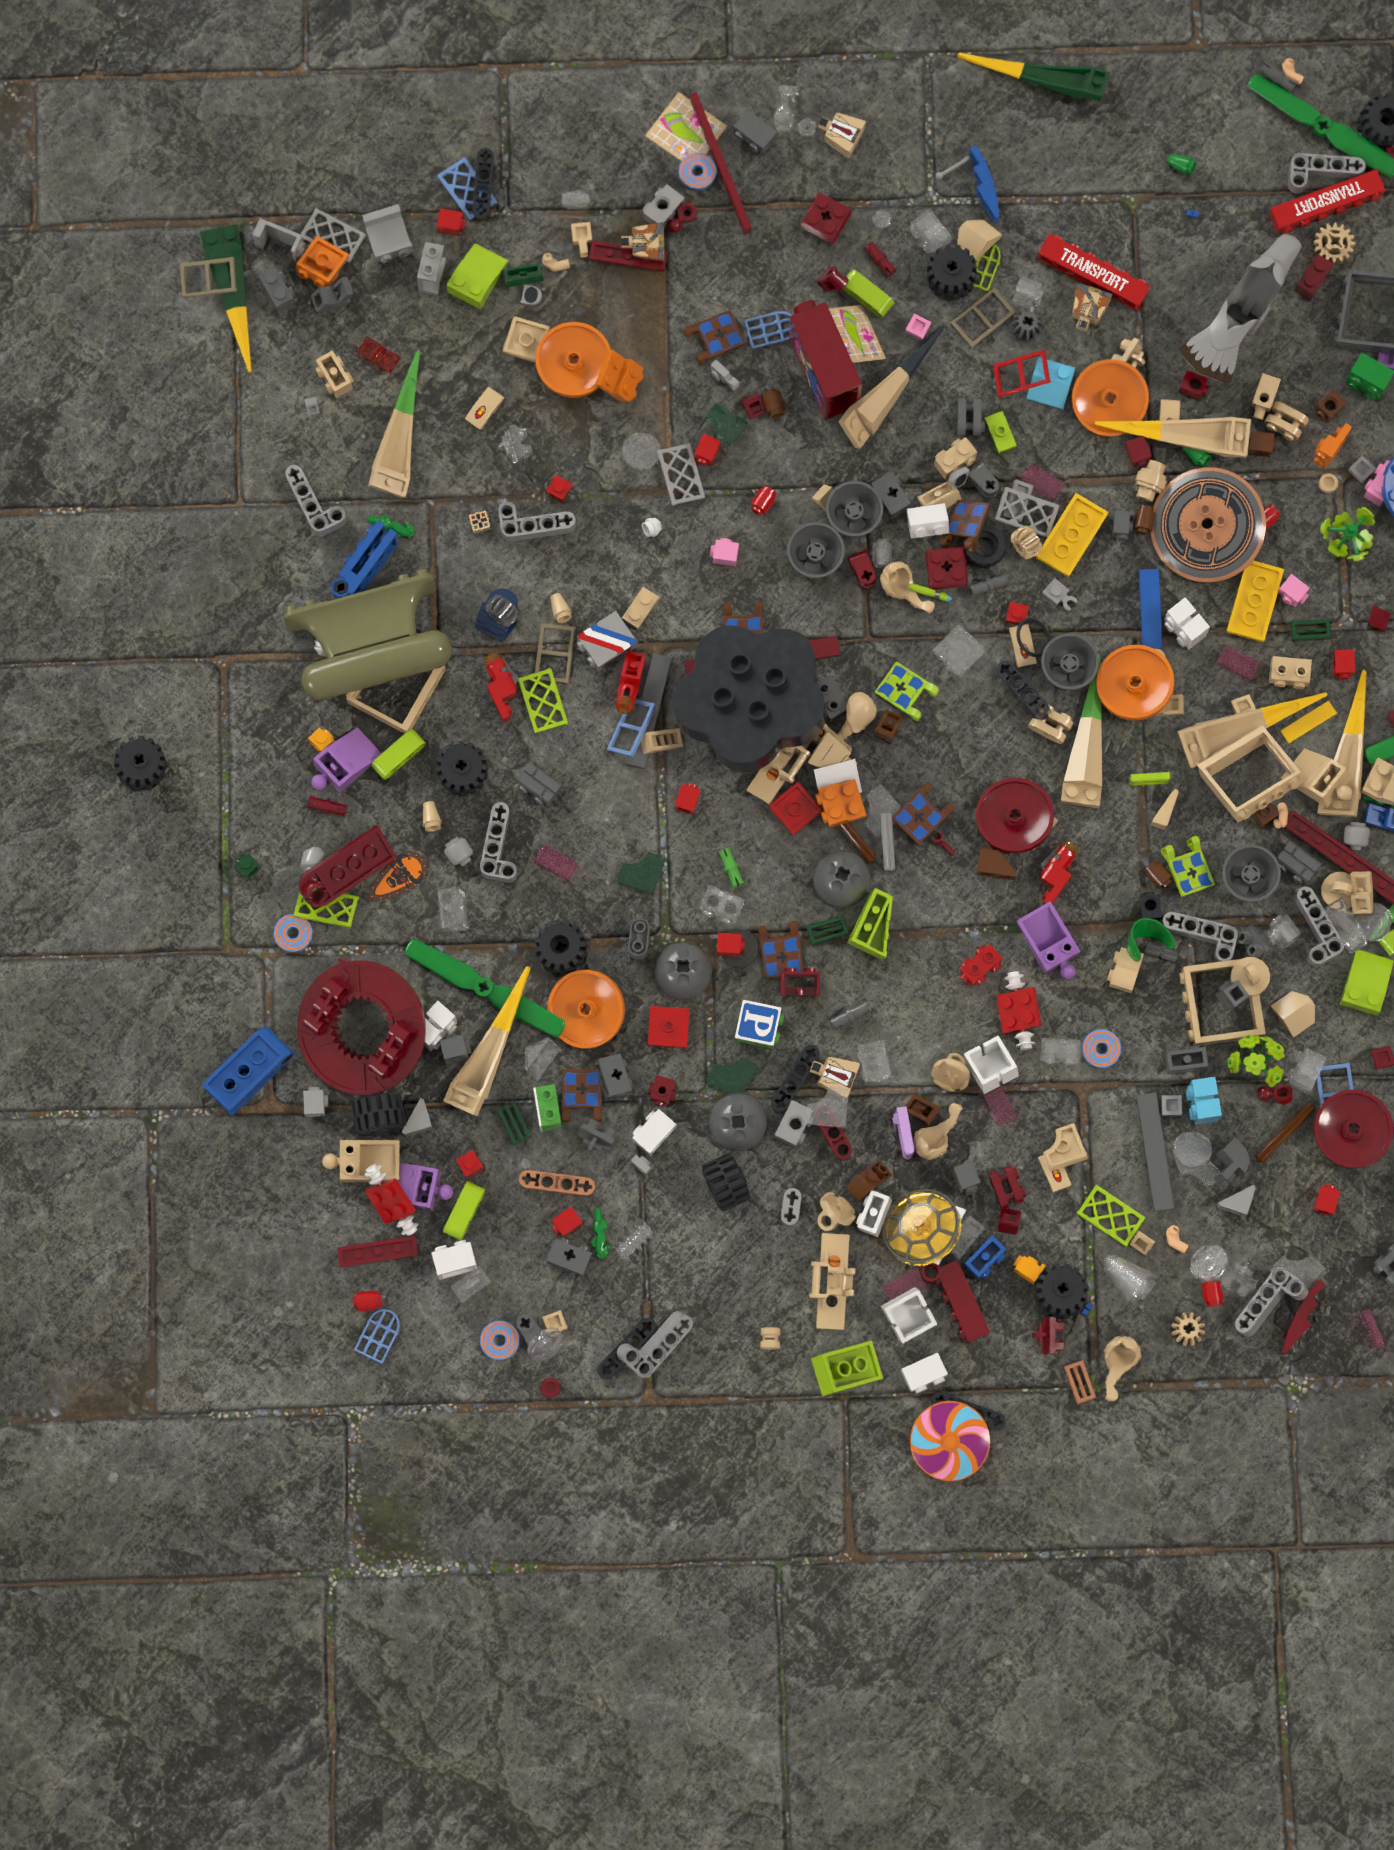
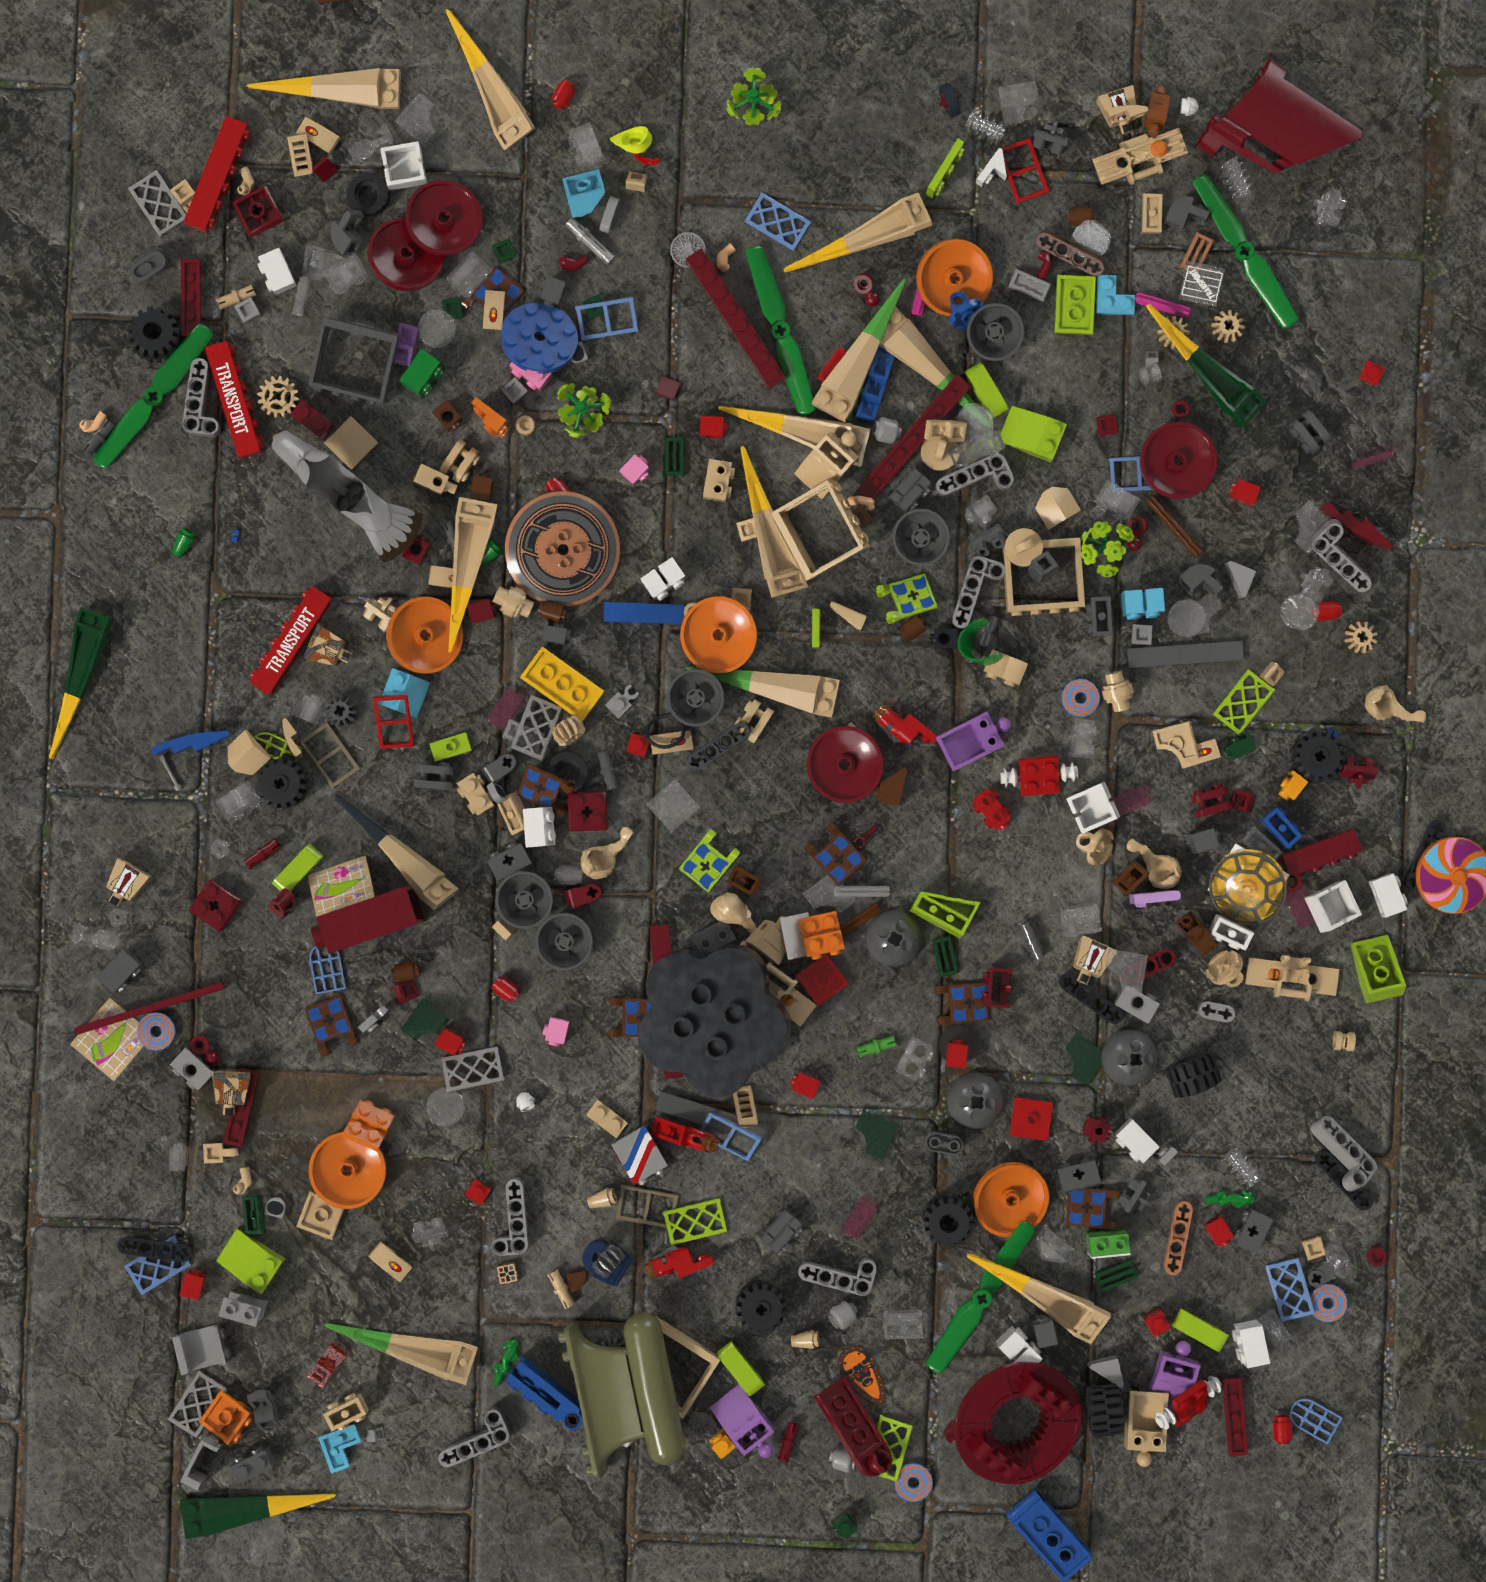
camera: 80 degrees left, 10 degrees up
(208, 277) = (235, 1533): dark tan window -> none
(301, 367) = (334, 1444): none -> medium azure plate
(315, 1102) = (1084, 1470): light grey brick -> none
(467, 574) = (561, 1288): none -> tan pin
(476, 588) = (576, 1280): none -> reddish brown tile
(524, 1307) = (1300, 1276): none -> medium blue window
(759, 1024) = (1036, 1030): piece -> none
(918, 327) = (337, 821): bright pink tile -> none
(929, 592) = (611, 830): lime piece -> none
(998, 276) = (290, 735): none -> tan slope
(1064, 1212) = (1239, 747): none -> dark green brick
(1074, 1366) = (1387, 749): nougat tile -> none
(1111, 1083) = (1117, 691): none -> tan piece
(1129, 1278) = (1308, 690): clear cone -> none
(1173, 1239) = (1272, 643): light nougat arm -> none
(1238, 662) = (702, 530): clear pink tile -> none
(1255, 601) = (642, 508): yellow plate -> none
(1294, 317) = (351, 443): none -> tan tile
(1308, 722) = (766, 466): yellow sticker -> none

